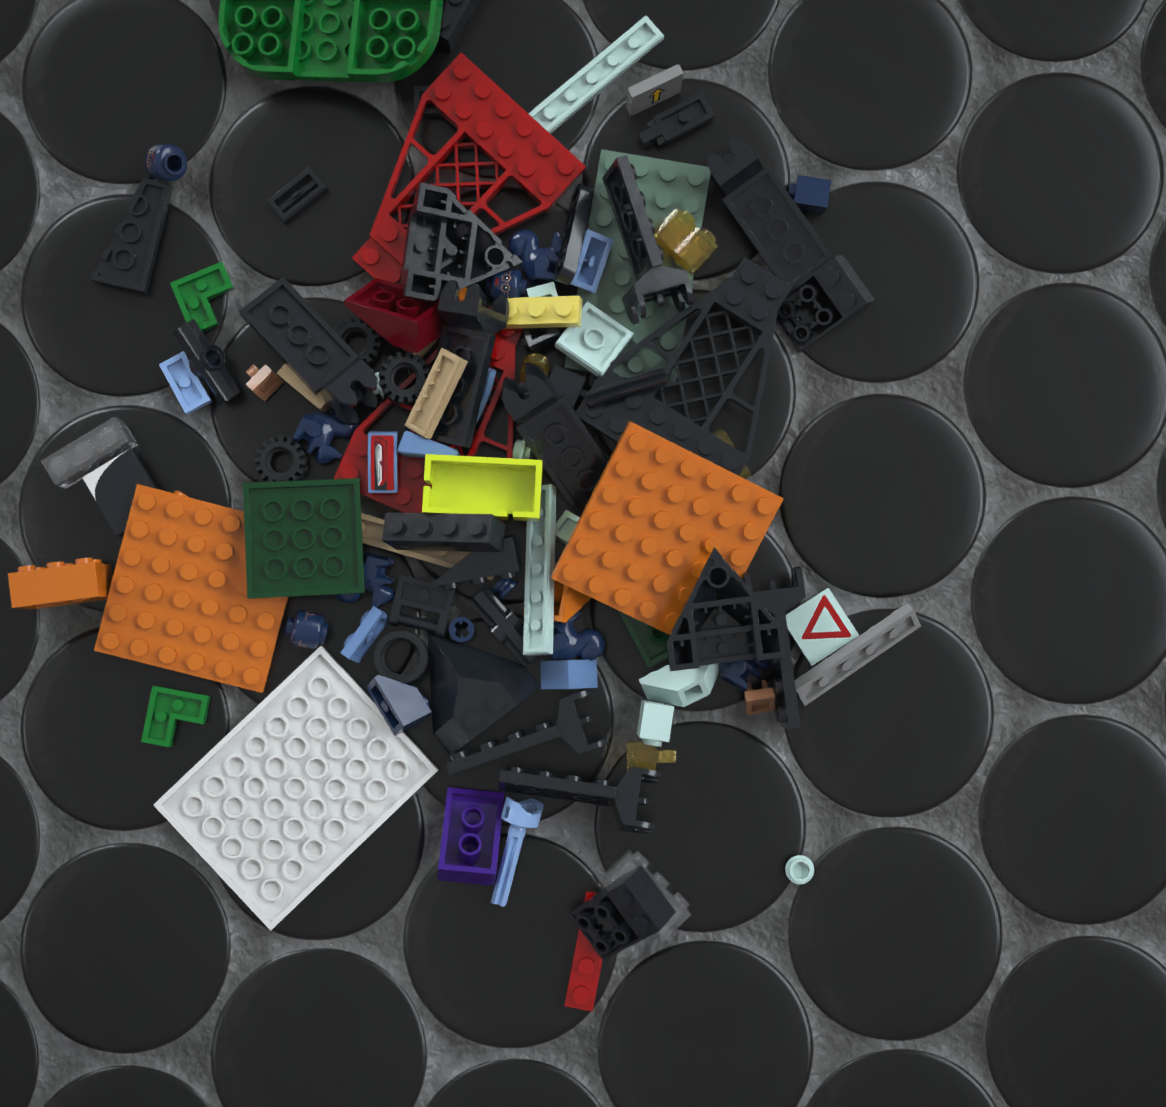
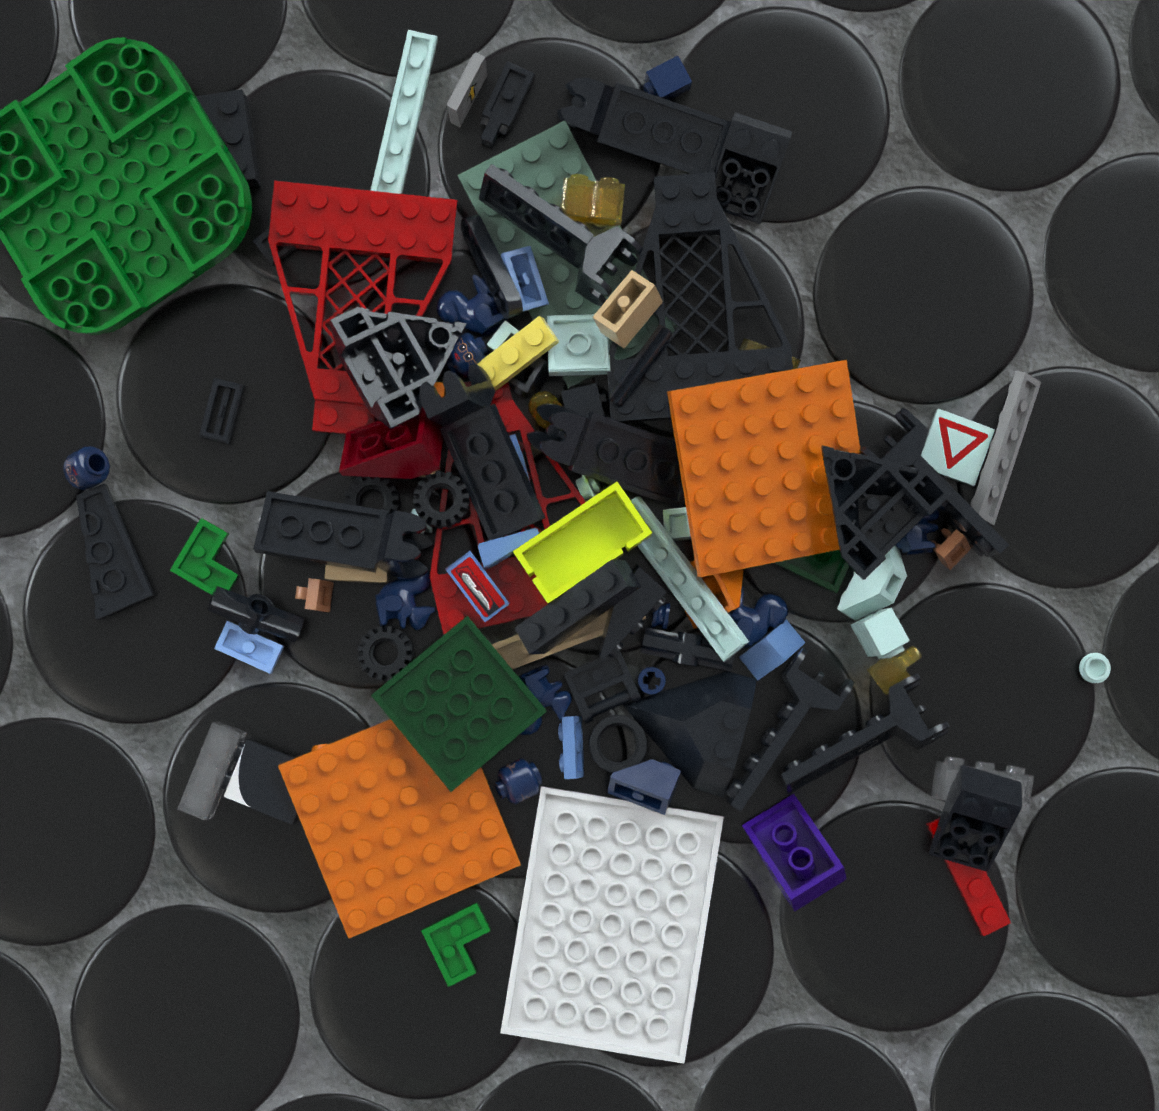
camera: 40 degrees left, 0 degrees up
(60, 584) = (275, 902): orange brick -> none
(436, 393) = (480, 492): tan plate -> none
(520, 816) = (825, 802): light blue piece -> none
(647, 338) = (627, 309): none -> tan brick

